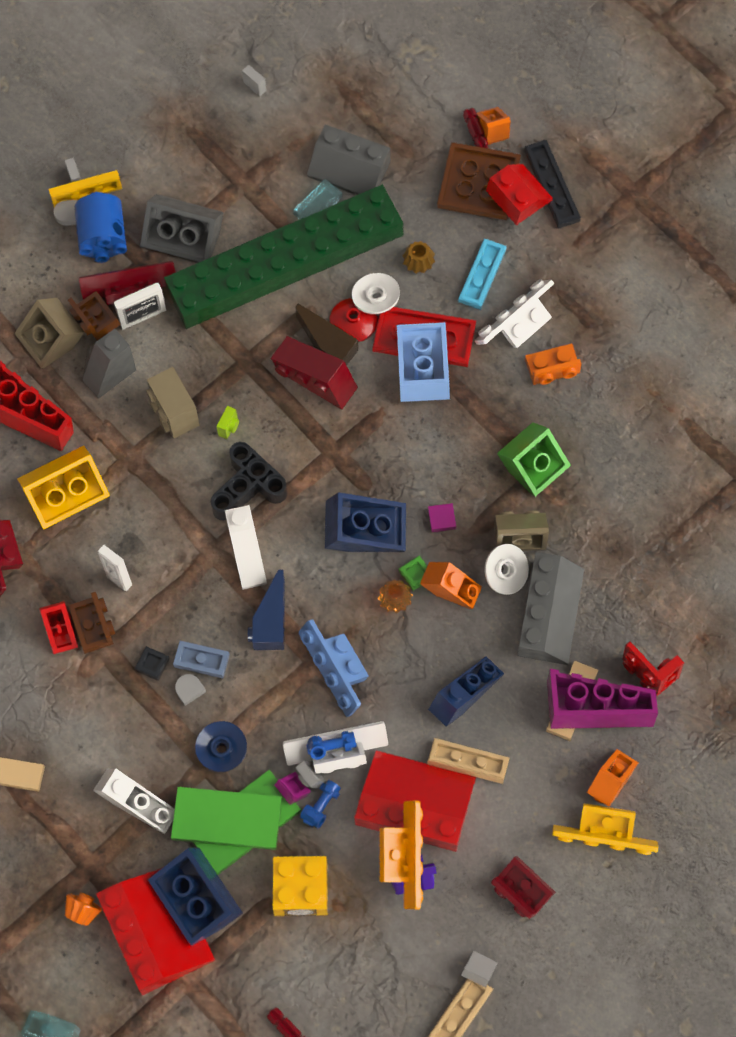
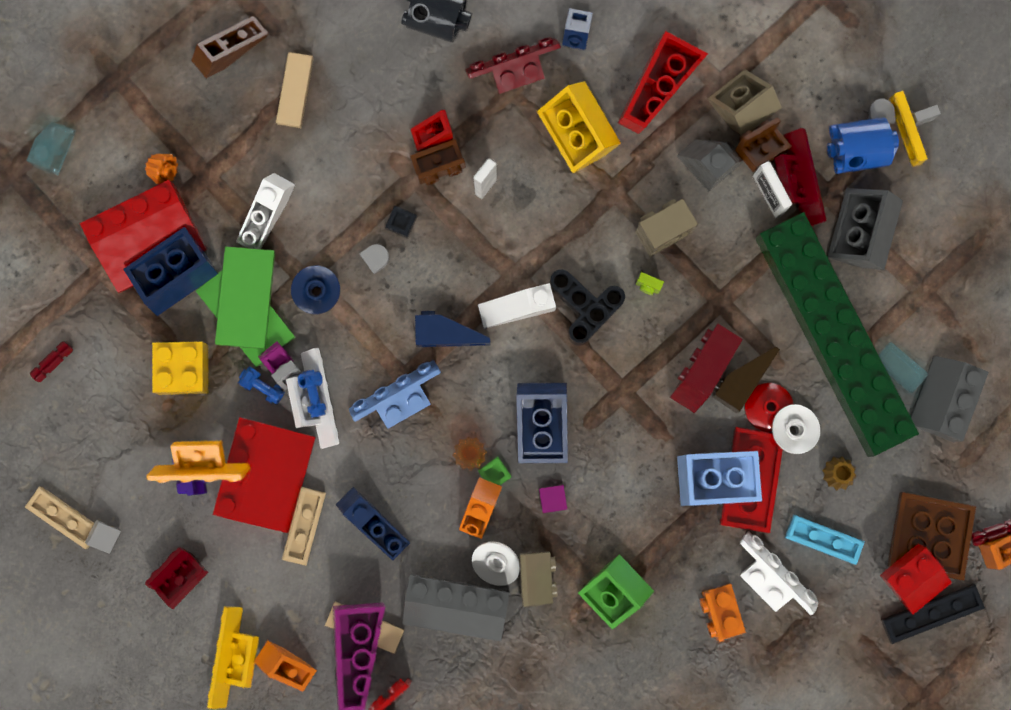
camera: 85 degrees right, 15 degrees up
(201, 659) = (403, 268): sand blue plate -> none

